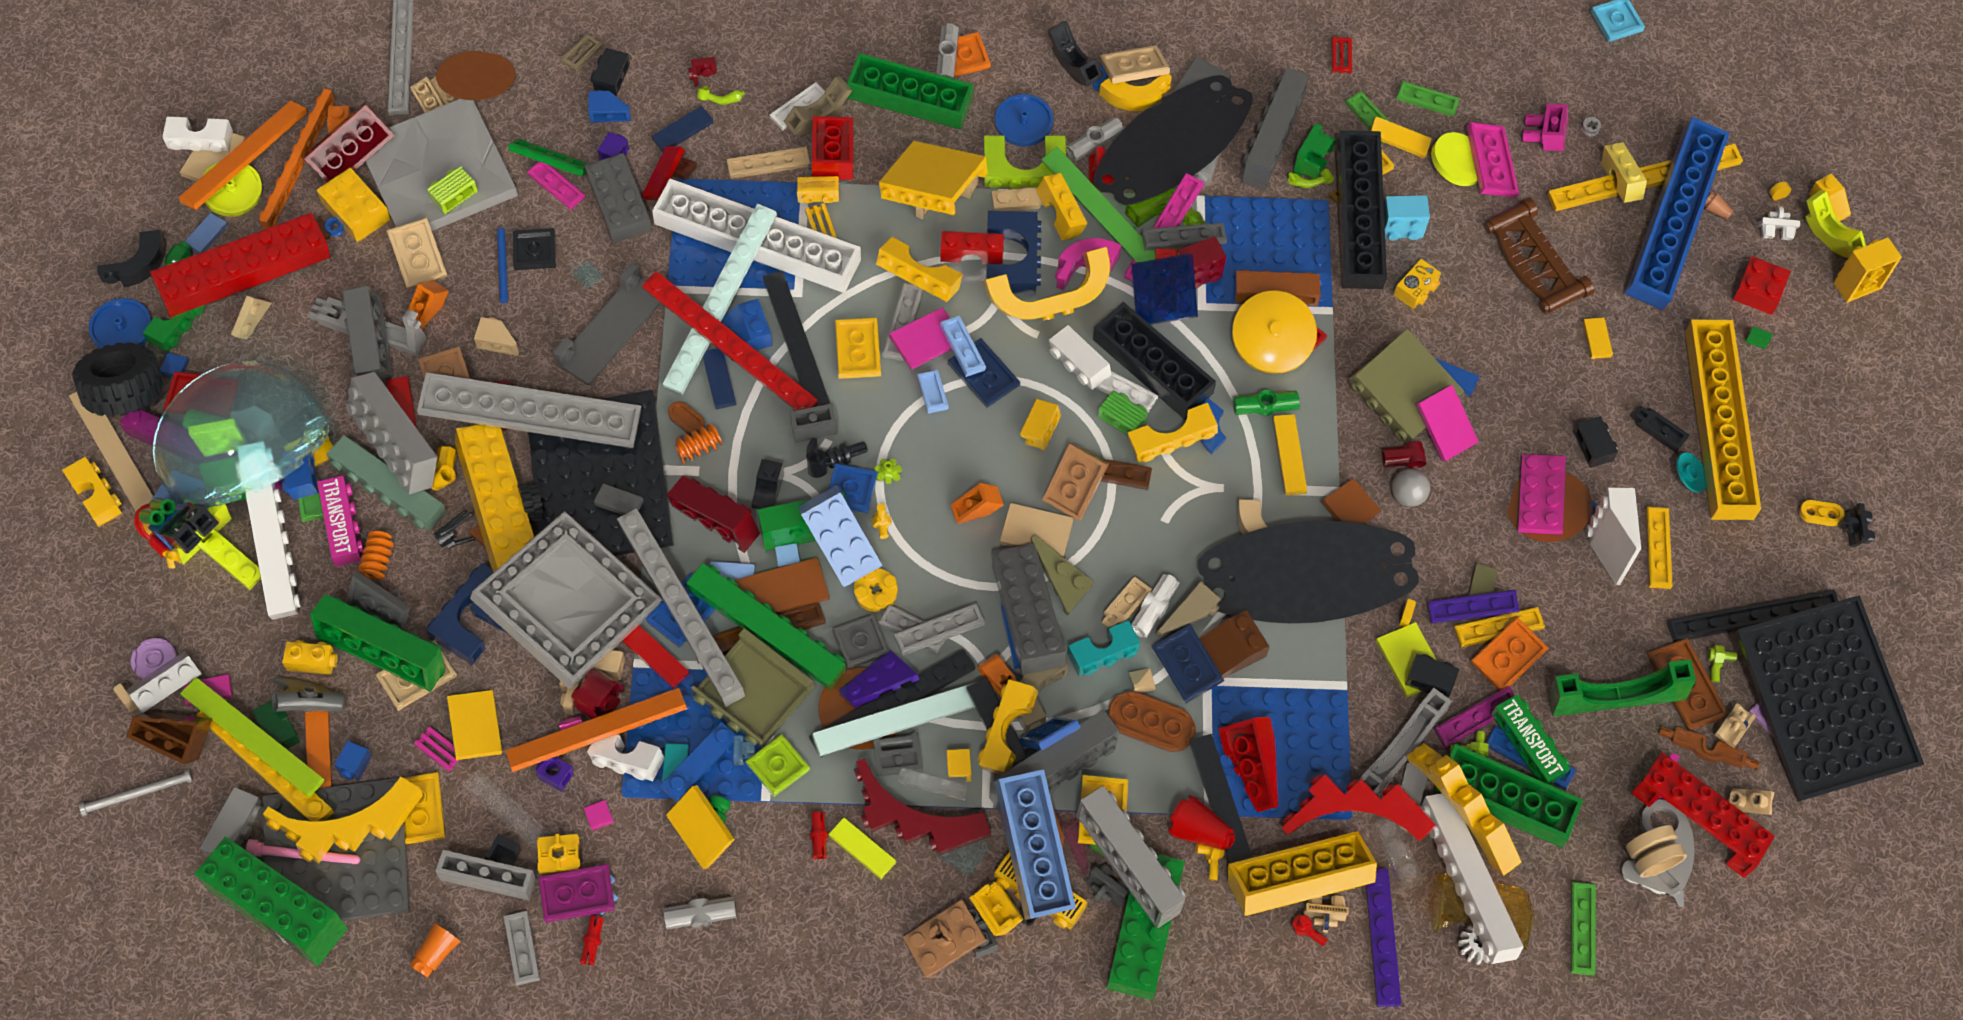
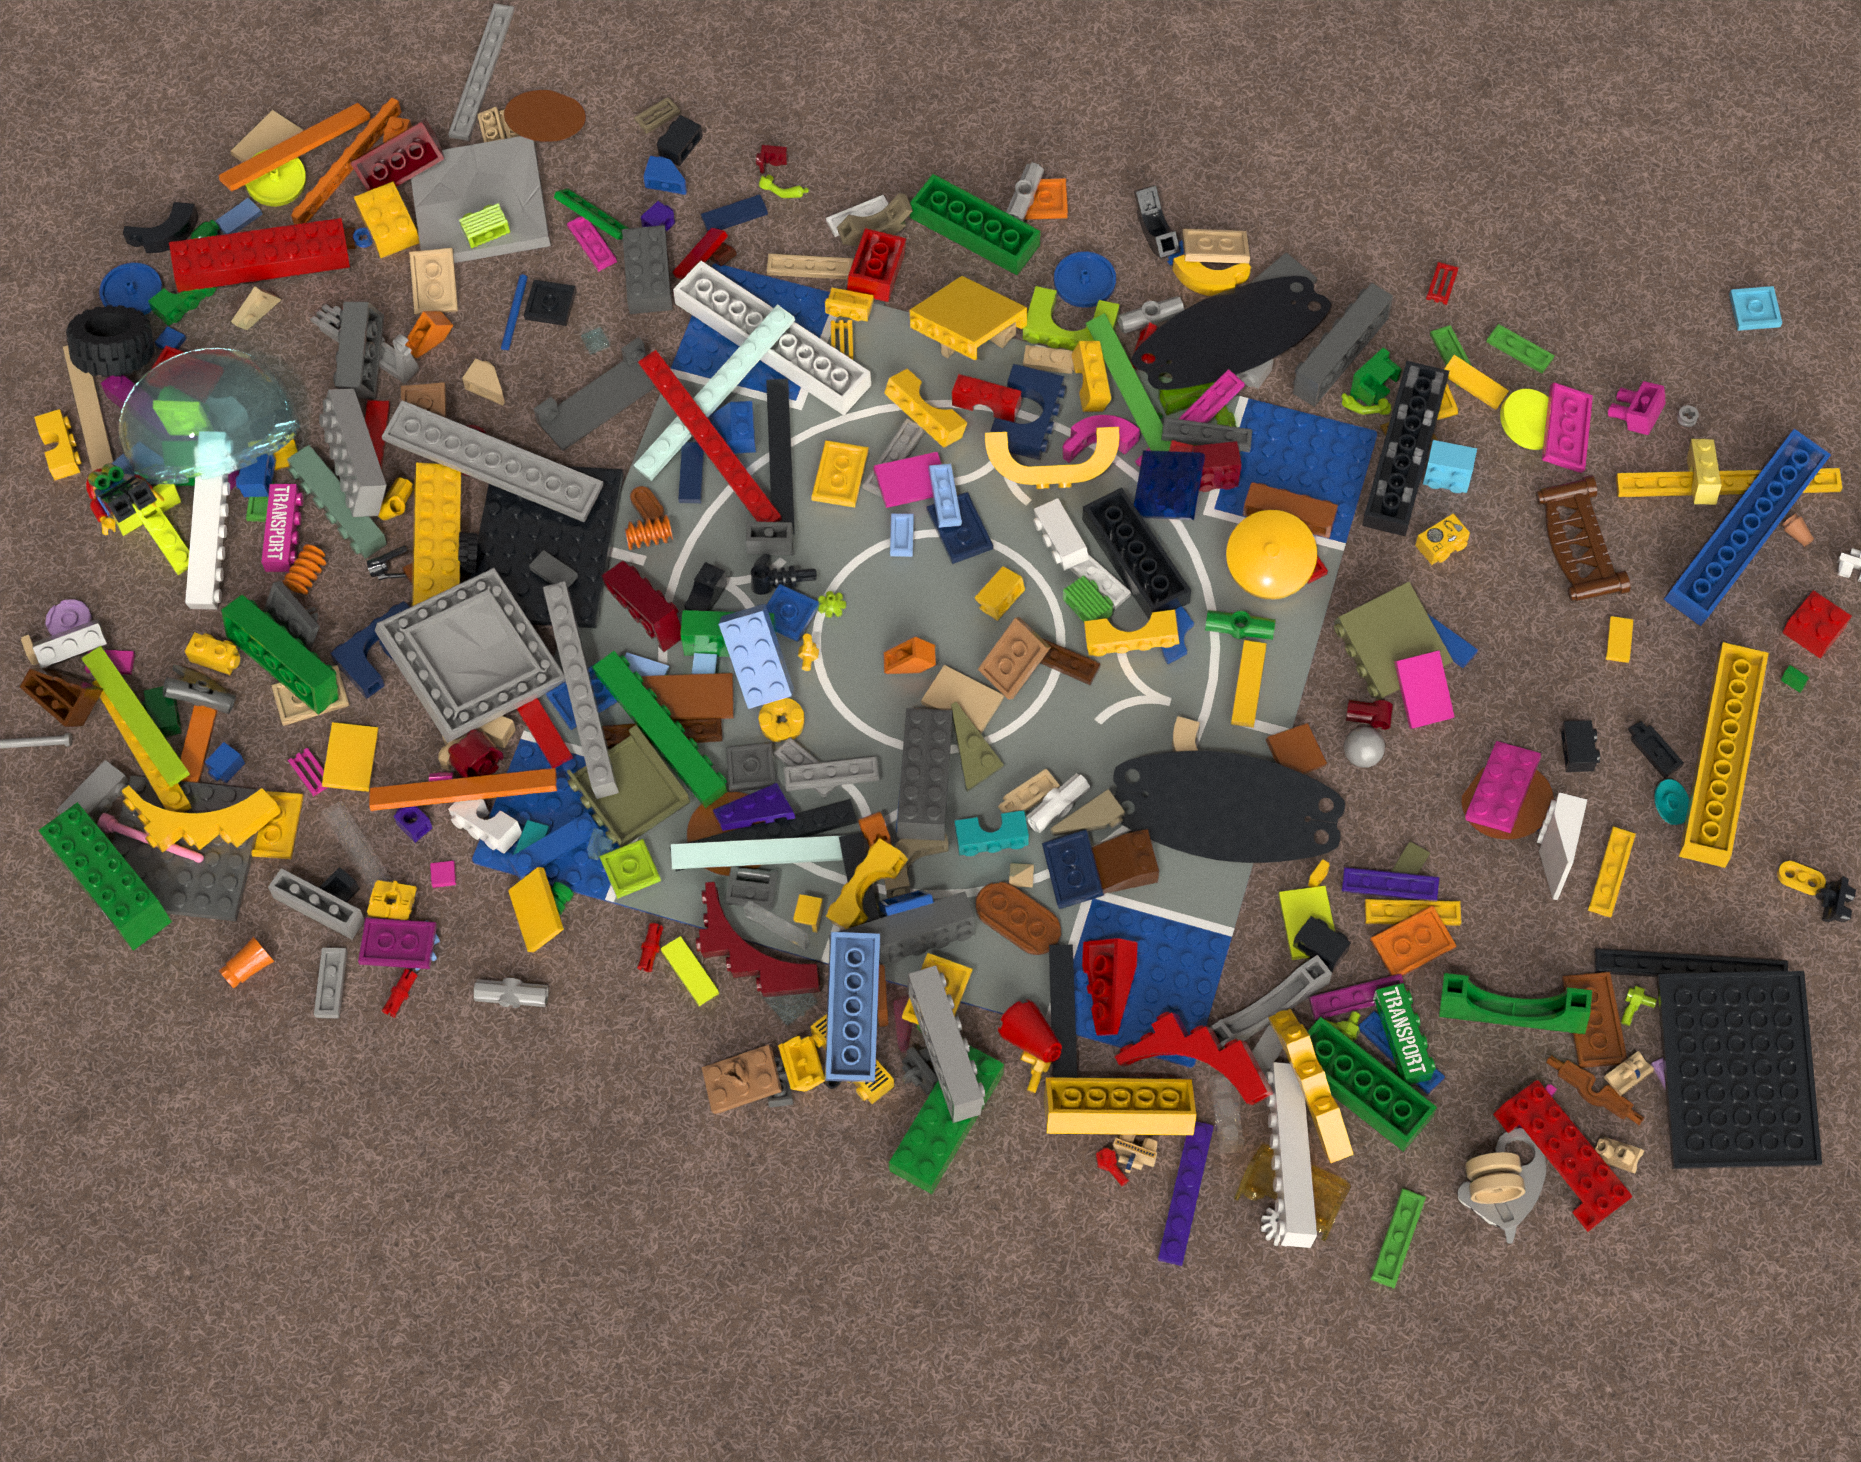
camera: 20 degrees right, 0 degrees up
(214, 137) = (272, 123): white arch -> none

